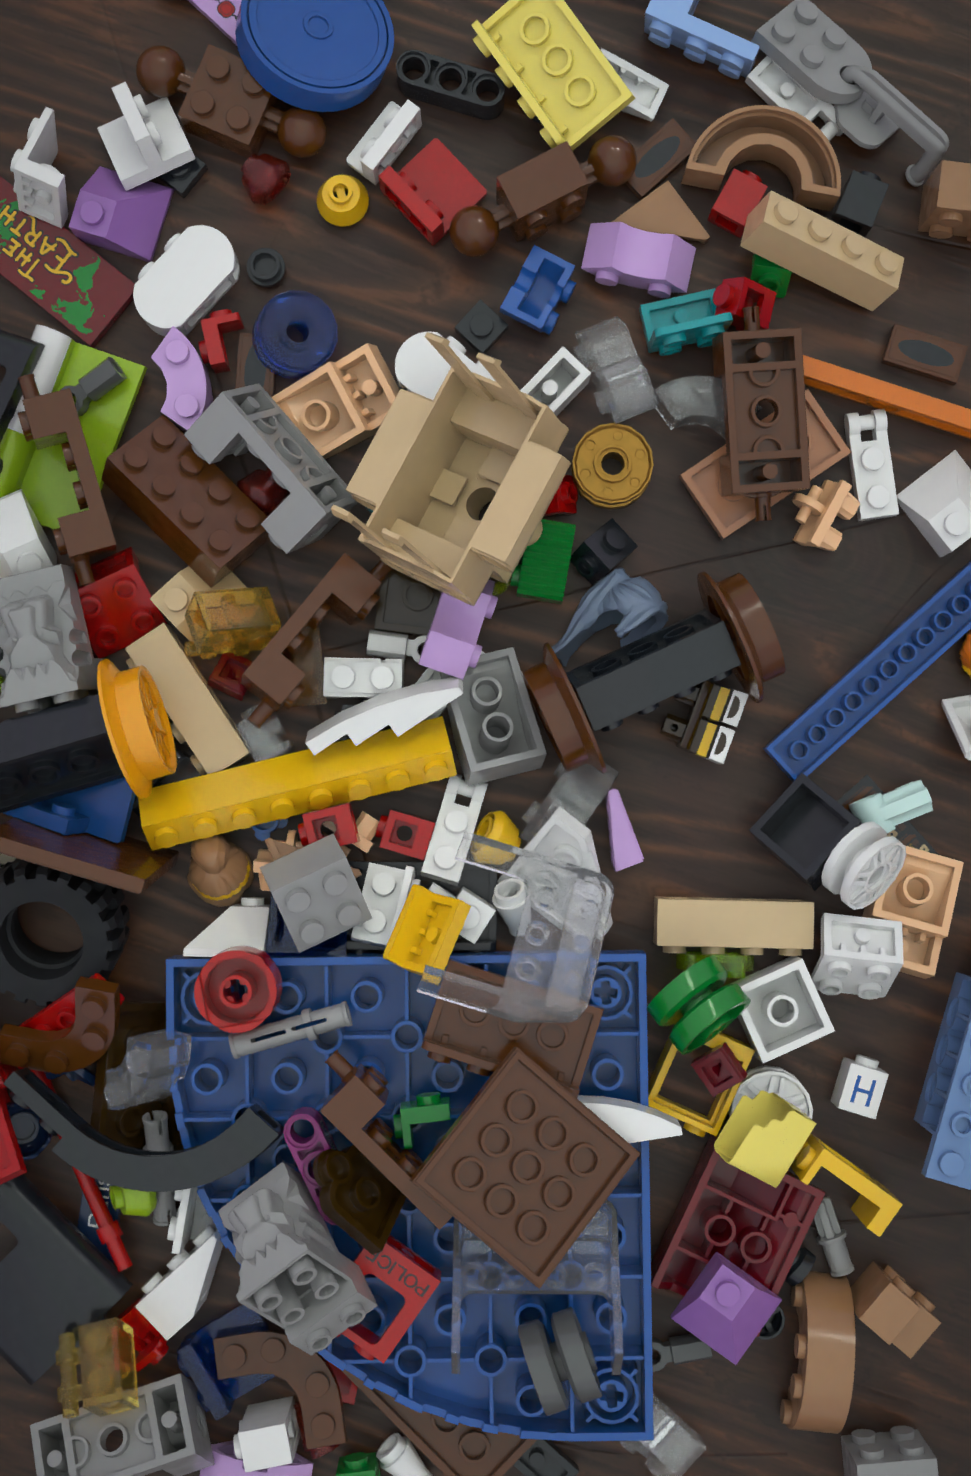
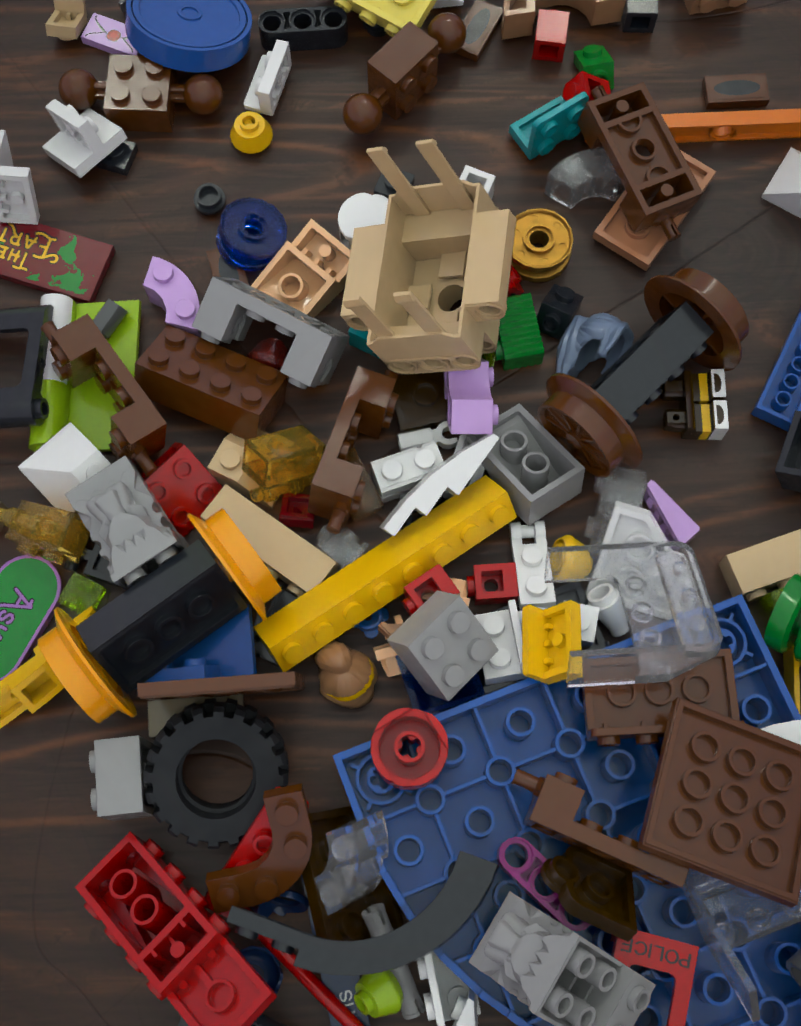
camera: 20 degrees left, 15 degrees down
(120, 218) = (83, 202): medium lavender slope -> none
(186, 280) = (150, 225): white brick -> none
(213, 346) = (186, 253): red bracket -> none
(238, 926) = (385, 700): white slope -> none
(264, 177) = (185, 135): clear red cone -> none
(336, 1015) = (501, 745): light grey pin -> none
(425, 1109) = (615, 794): green bracket -> none
(431, 189) = (315, 104): red bracket -> none
(539, 290) = (426, 126): blue cylinder -> none
(615, 370) = (519, 179): clear brick -> none
(638, 258) = (494, 94): lavender brick -> none
(665, 213) = (499, 64): medium nougat tile -> none
(819, 511) = (712, 221): light nougat hips -> none
(822, 251) = (630, 37): tan brick -> none
(871, 465) = (735, 179): white plate -> none

